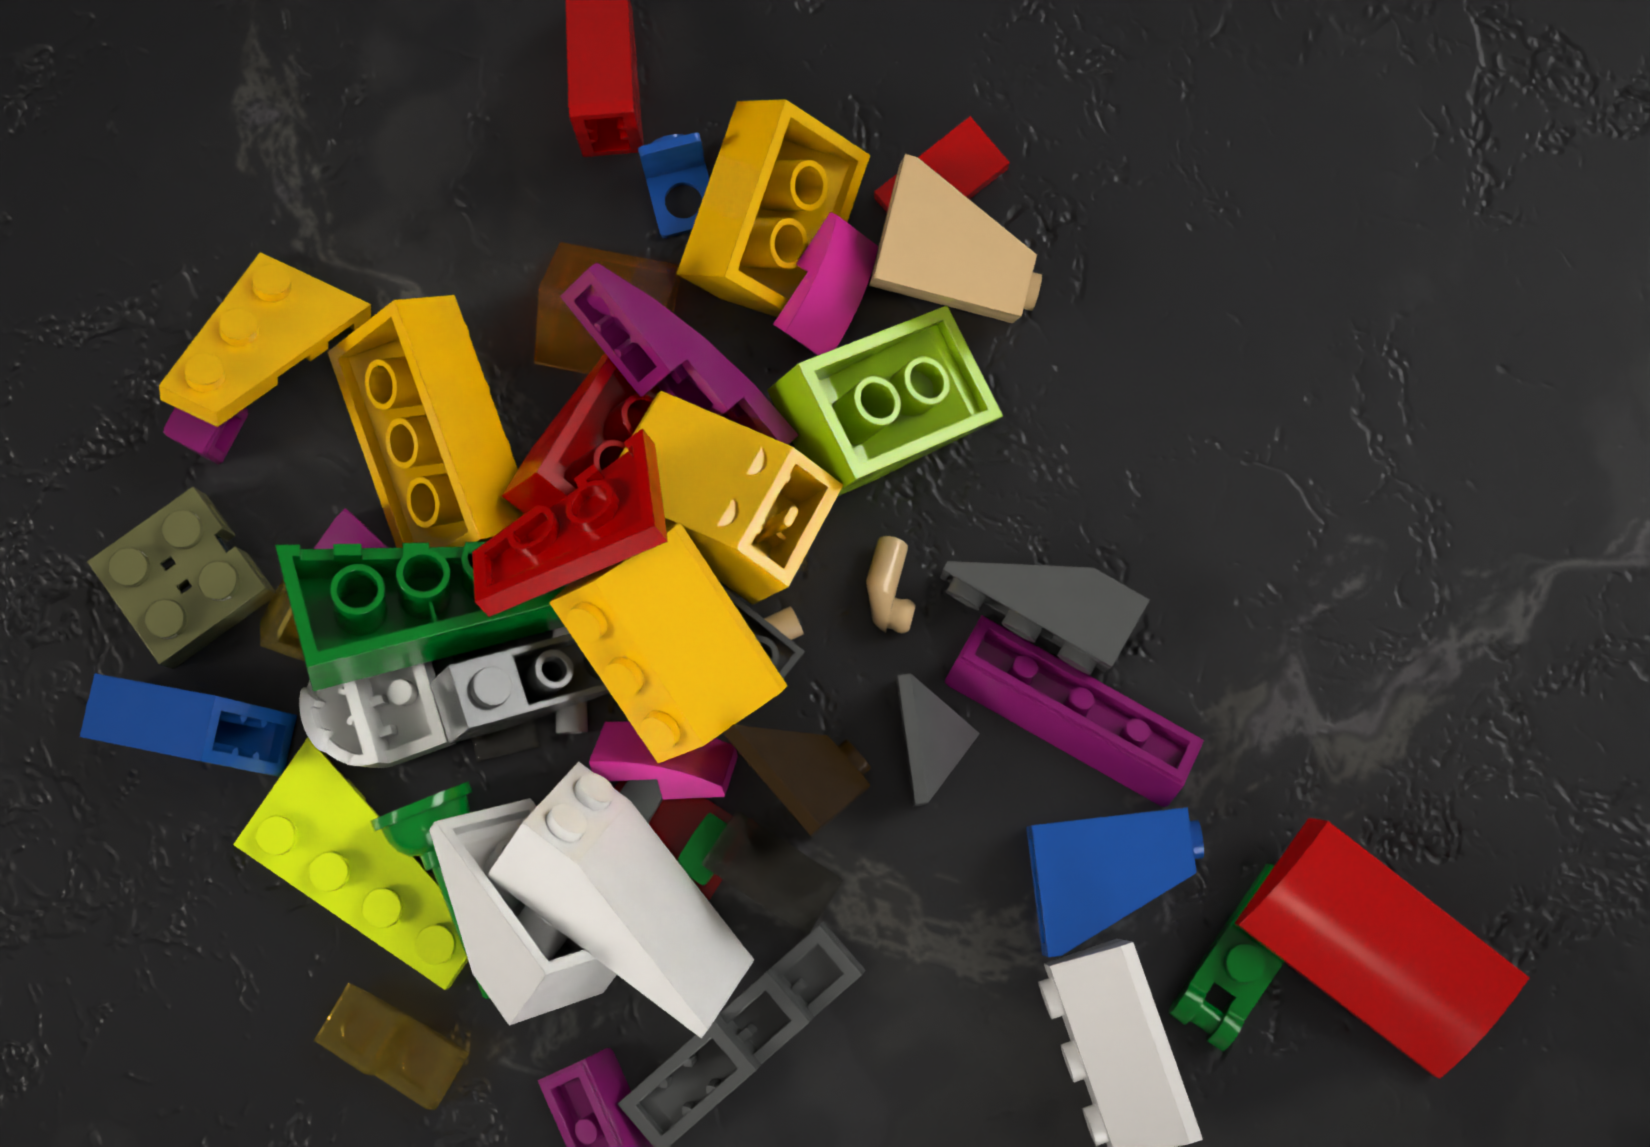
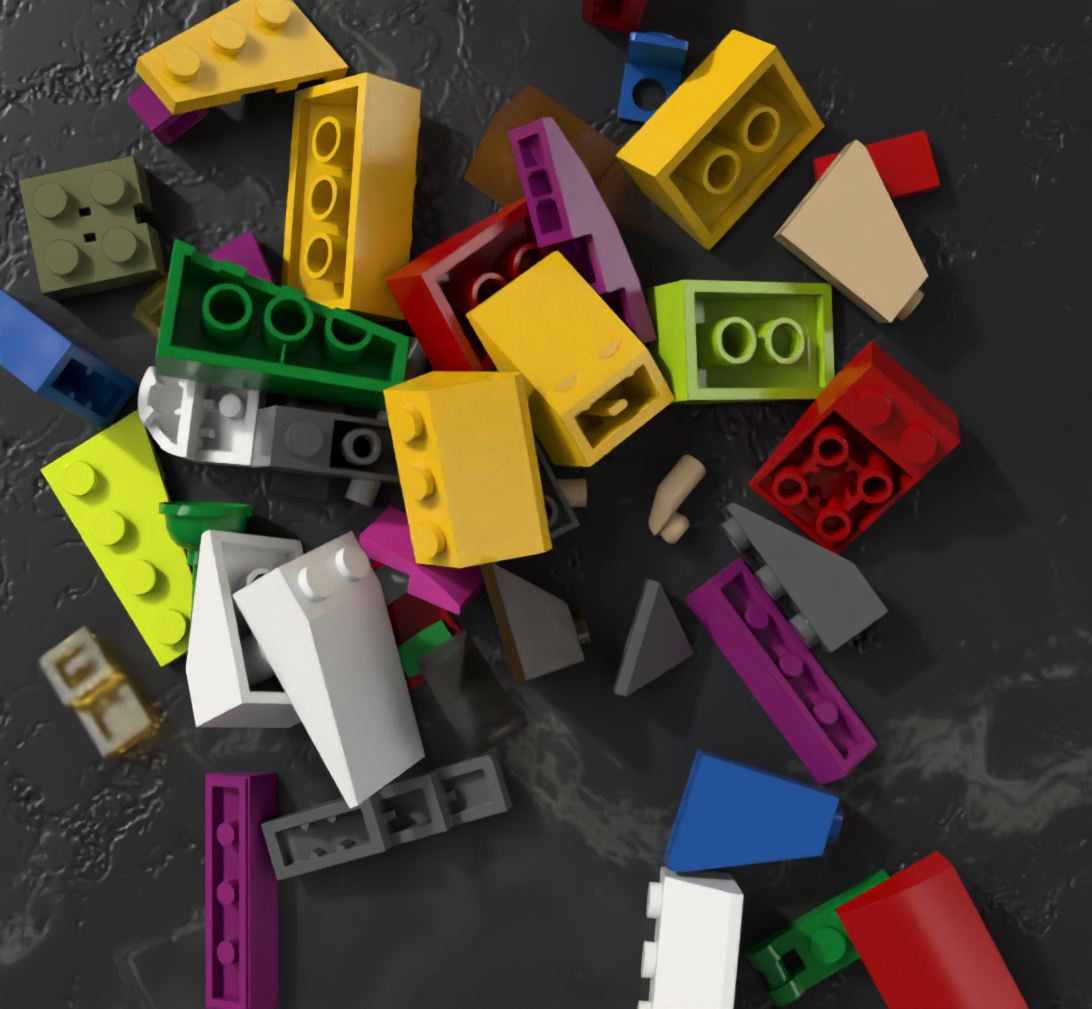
camera: 25 degrees right, 5 degrees up
(593, 527) = (443, 344): red wing -> none
(830, 293) = (733, 233): dark pink slope -> none
(1046, 456) = (857, 450): none -> red slope

